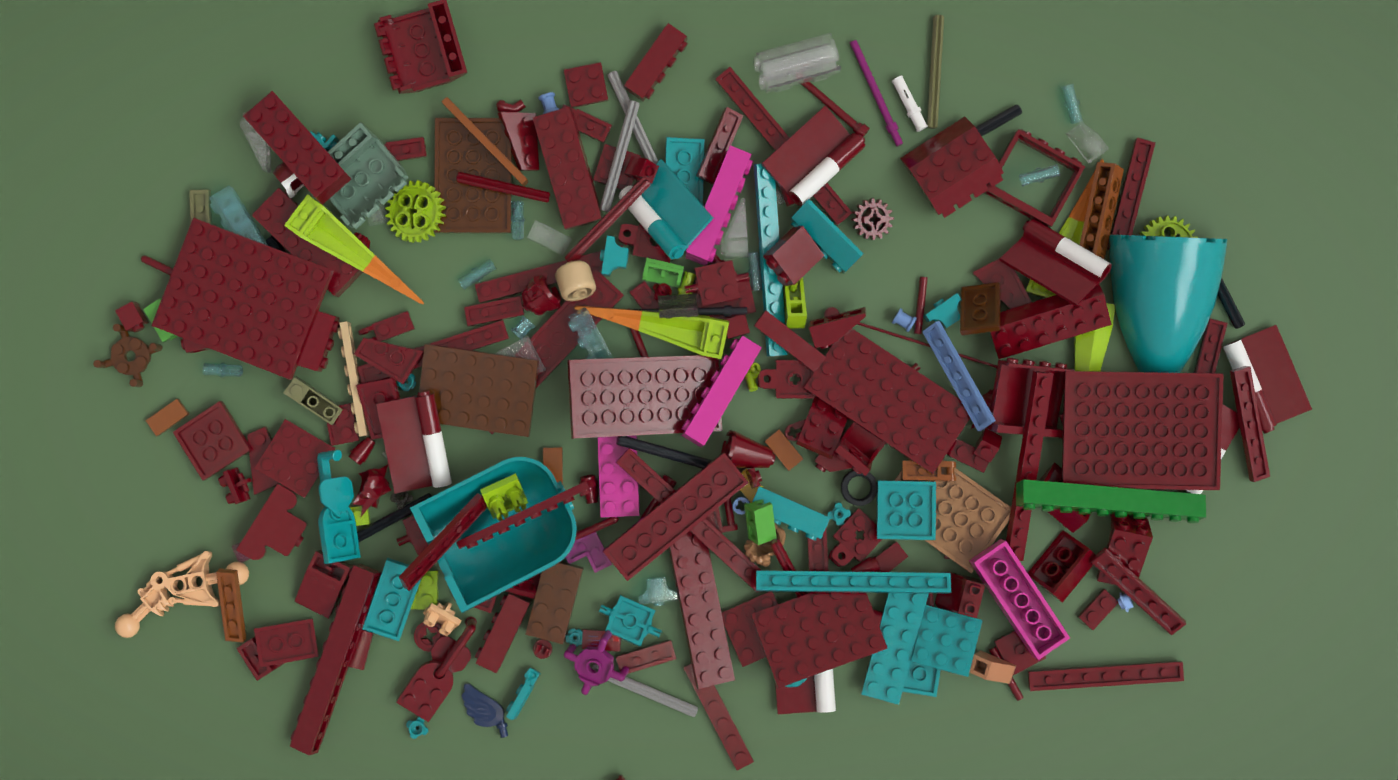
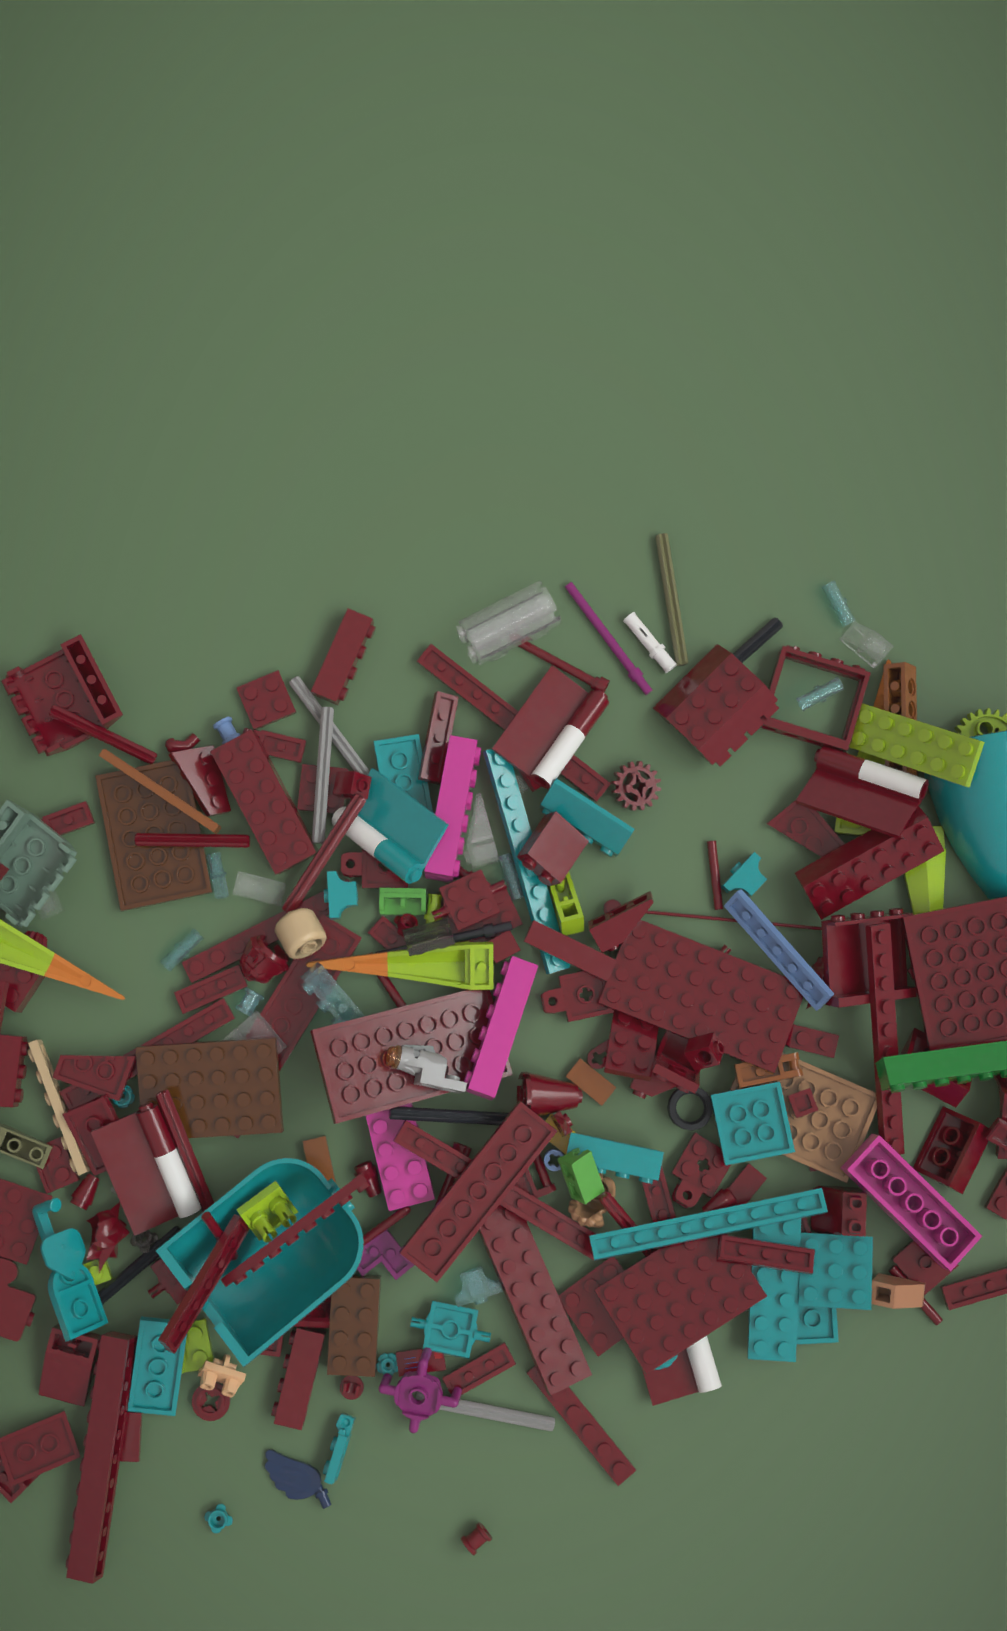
camera: 15 degrees left, 5 degrees down
(390, 327) = (90, 1035): dark red hinge -> none
(428, 690) = (224, 1467): dark red plate -> none
(431, 212) = (113, 889): lime gear -> none
(447, 85) = (102, 734): none -> dark red axle
(448, 433) = (184, 1149): none -> dark red axle
(460, 501) = (214, 1228): none -> dark red bar
(655, 408) = (427, 1065): none -> light grey plate
(751, 377) = (534, 1001): lime arm -> none
(844, 514) = (672, 1138): teal plate -> none
(880, 444) = (704, 1051): none -> dark red brick
(894, 615) = (766, 1254): none -> dark red tile
(904, 320) = (699, 896): medium blue bush -> none
(950, 502) = (802, 1103): none -> dark red plate
(980, 308) = (786, 864): reddish brown tile -> none
(987, 445) = (831, 1024): dark red brick -> none
(1108, 233) = (916, 745): none -> lime plate
(1133, 187) = (932, 676): dark red plate -> none

